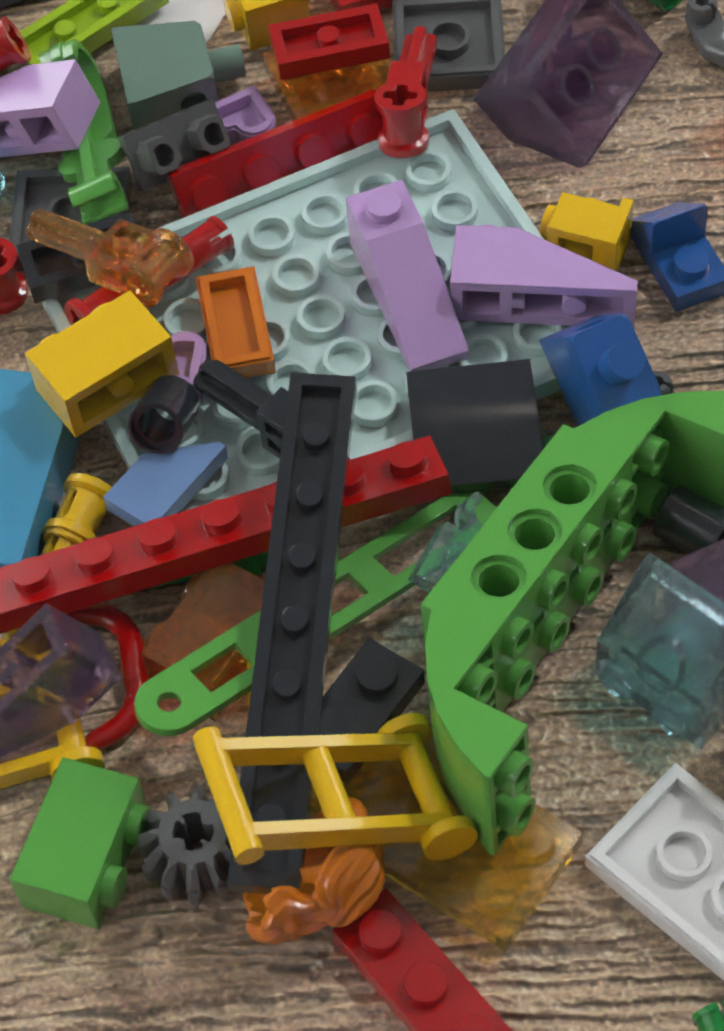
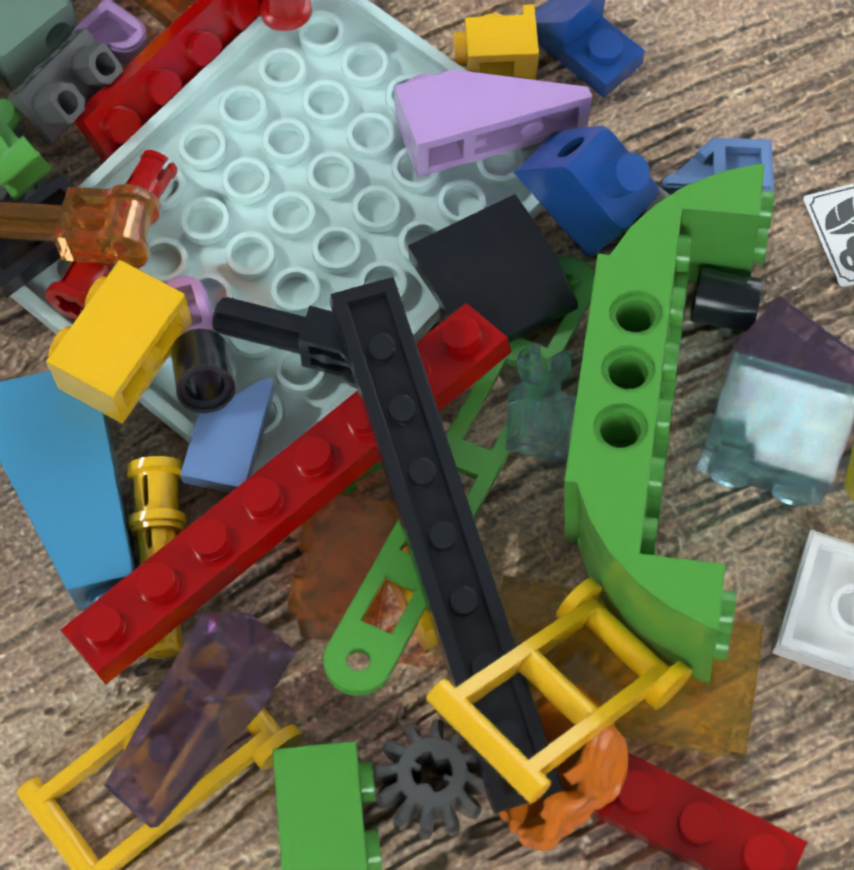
camera: 30 degrees left, 10 degrees up
(132, 667) = (278, 621): red animal -> none
(236, 321) = (217, 249): orange tile -> none
(368, 695) = (527, 575): black plate -> none
(405, 276) = (361, 150): lavender slope -> none

